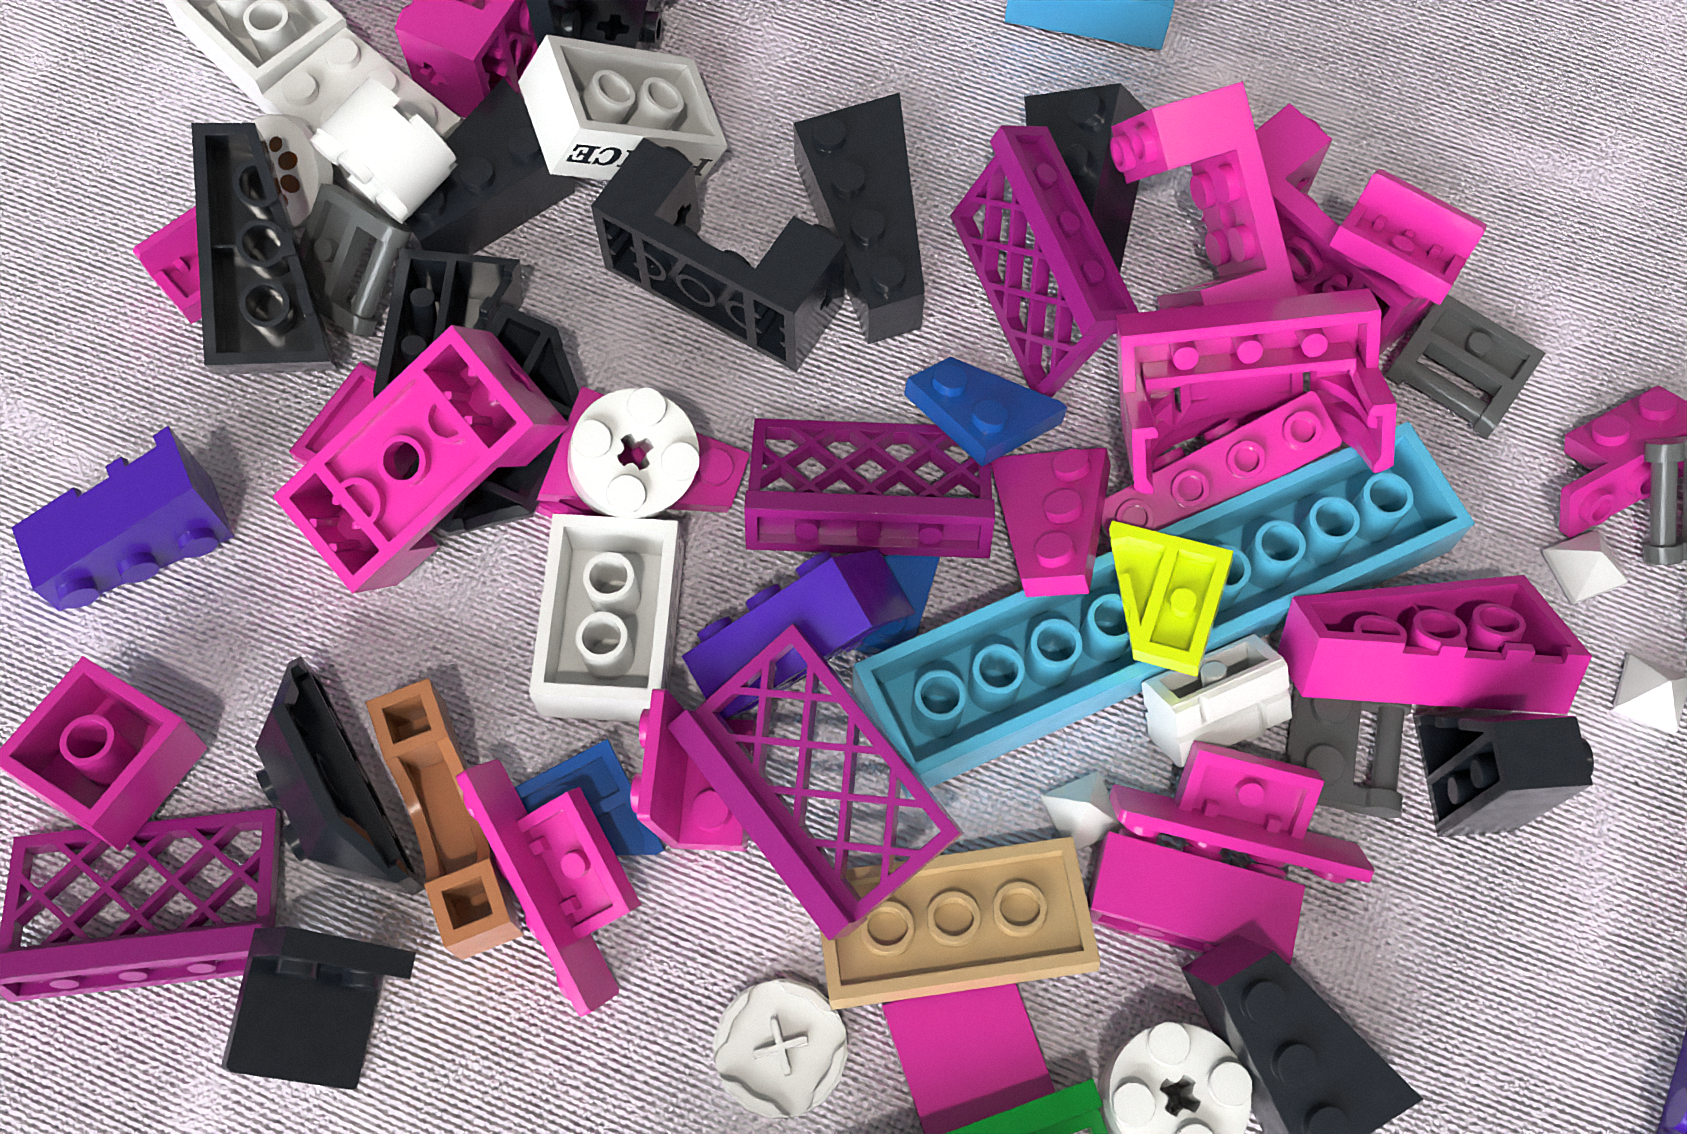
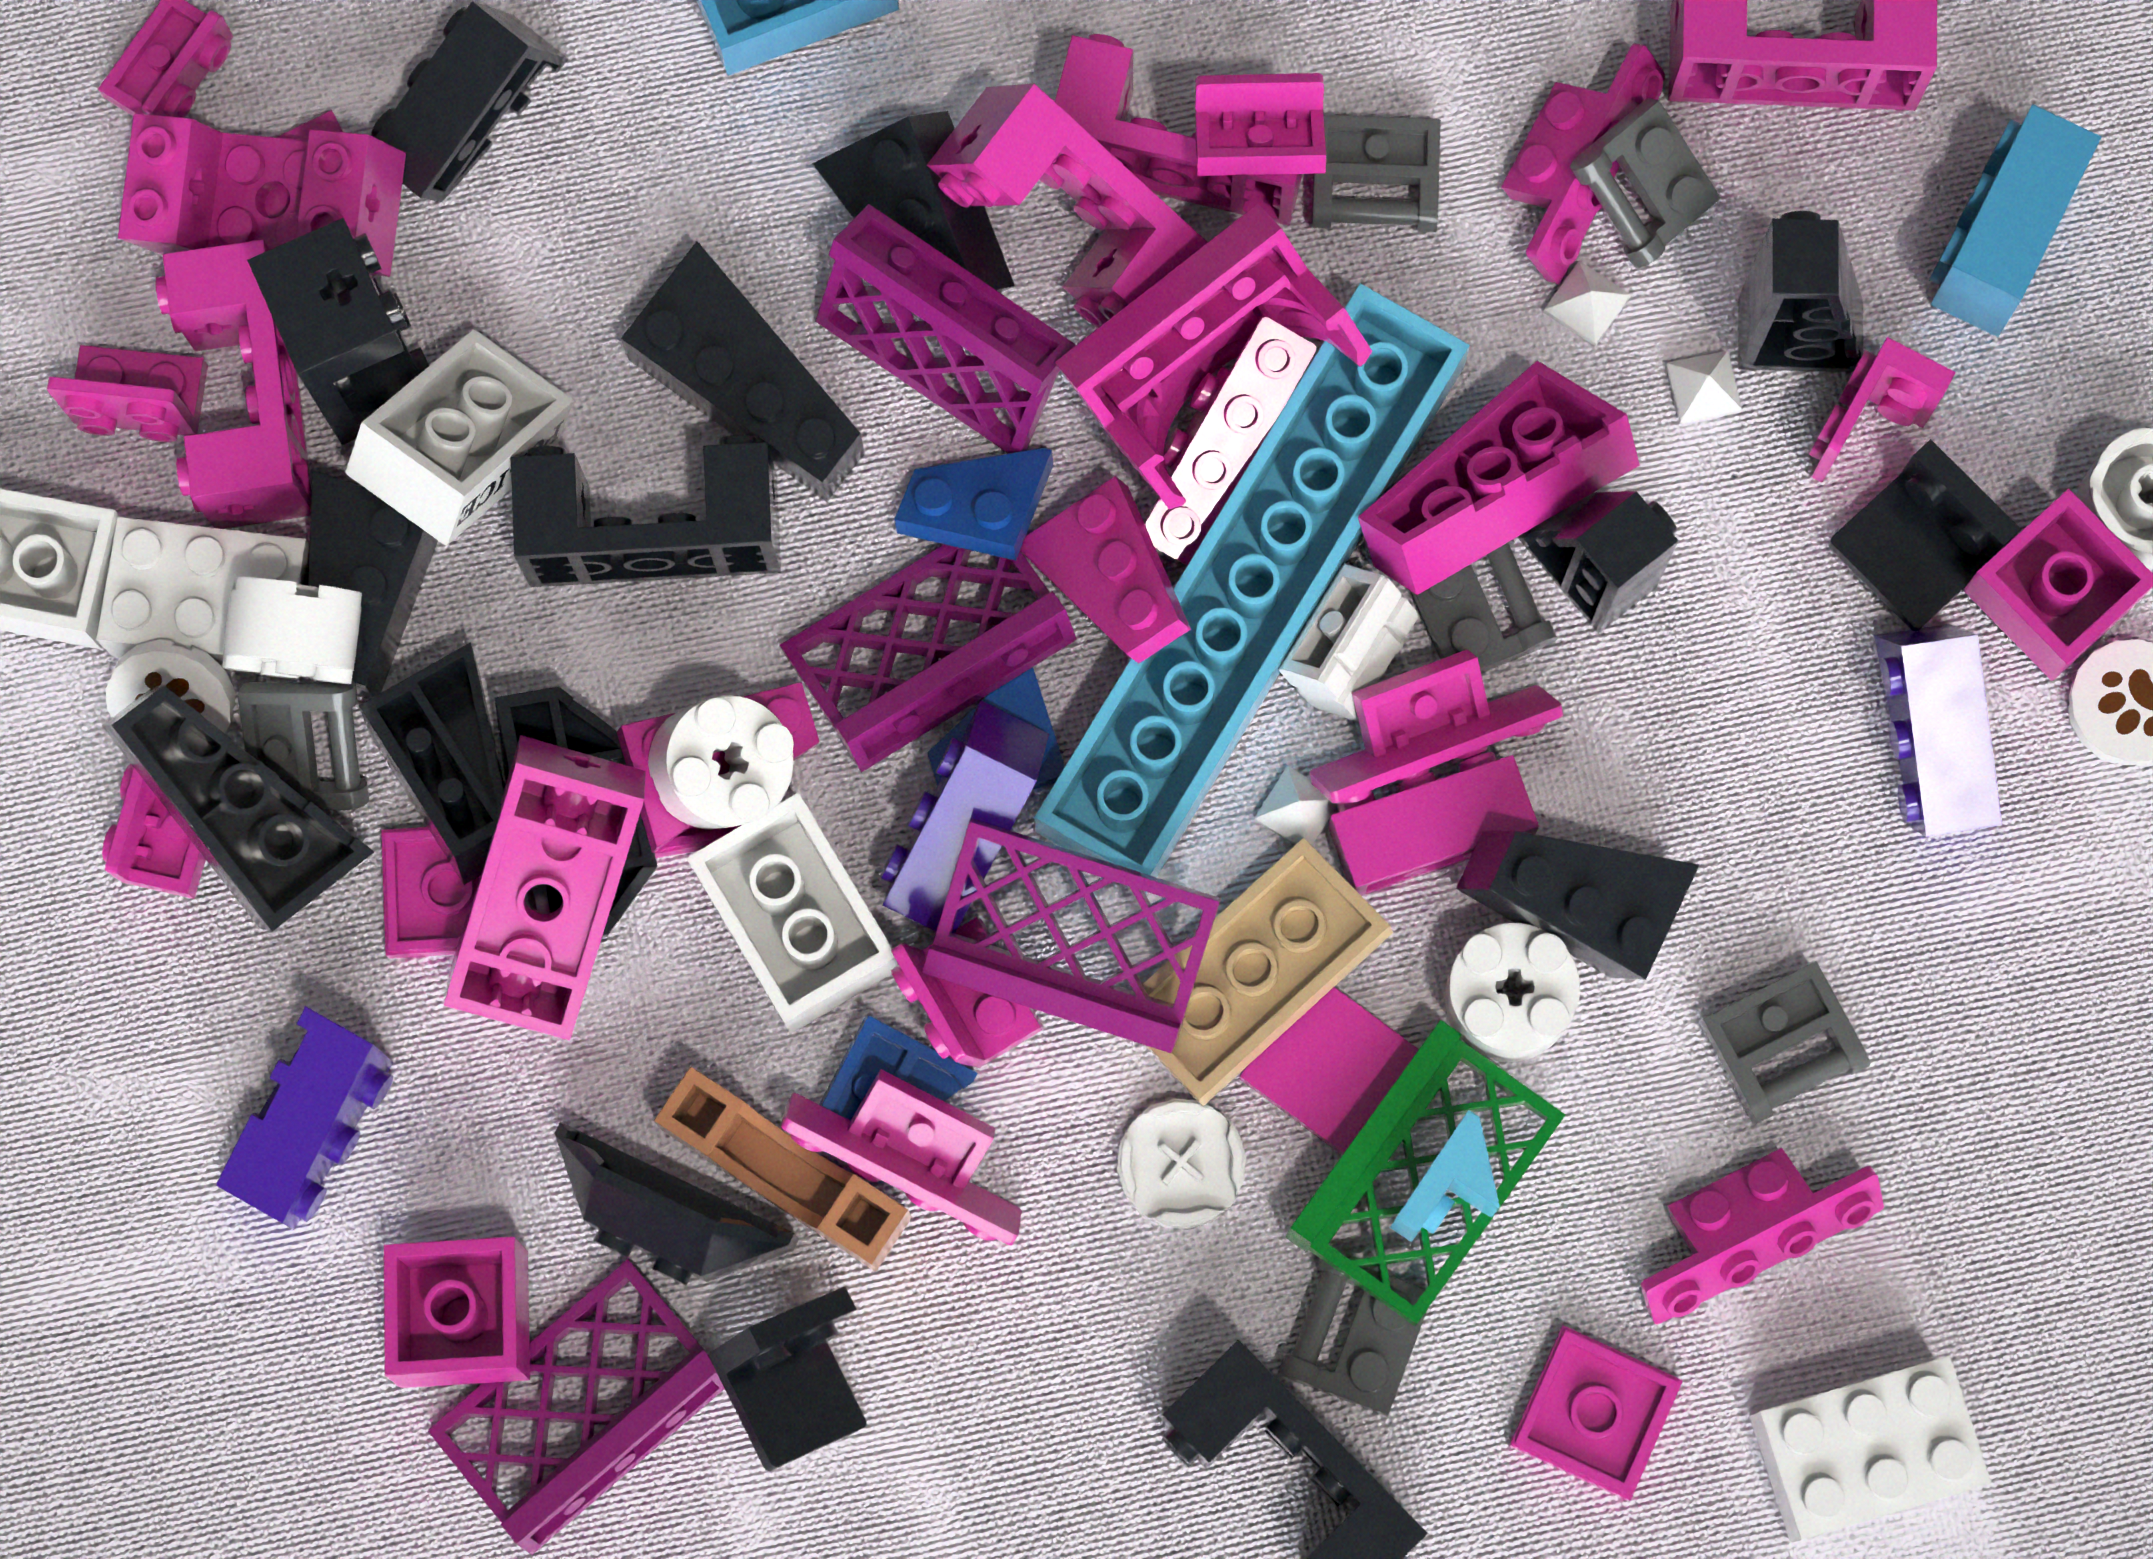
camera: 30 degrees left, 10 degrees up
(1168, 594) = (1255, 585): neon yellow wing -> none

